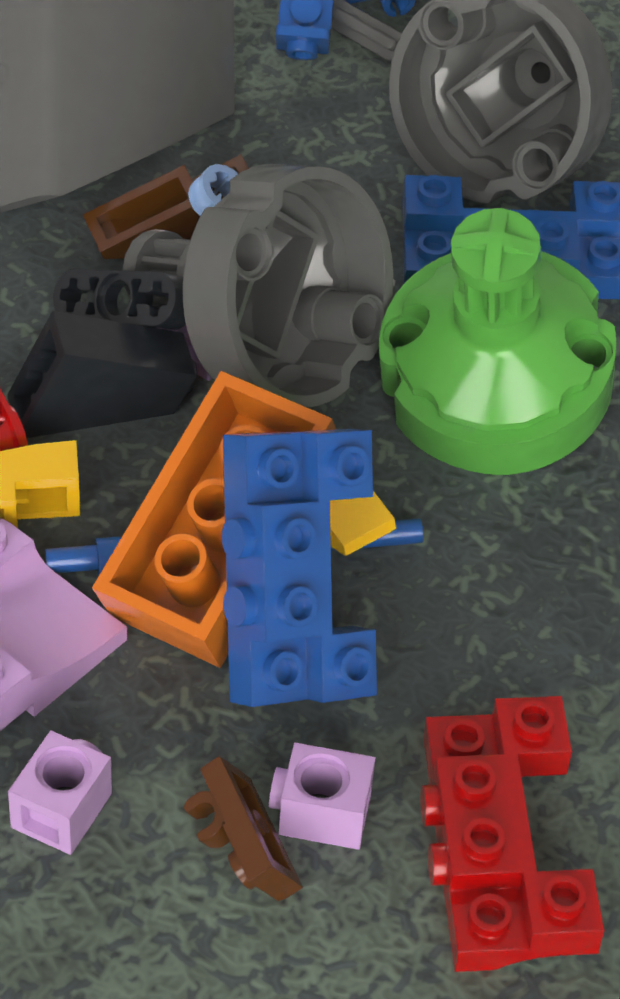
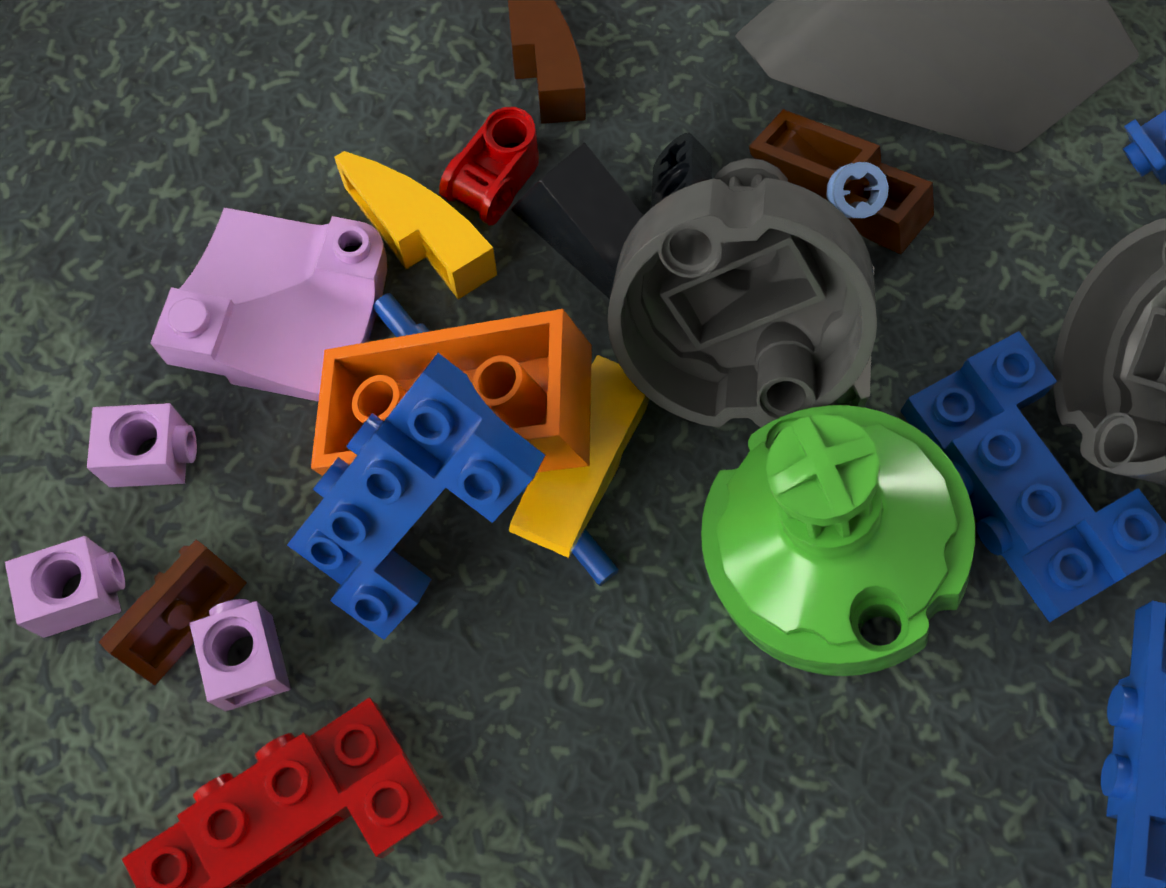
camera: 65 degrees right, 20 degrees up
(158, 929) = (39, 580): none -> lavender brick

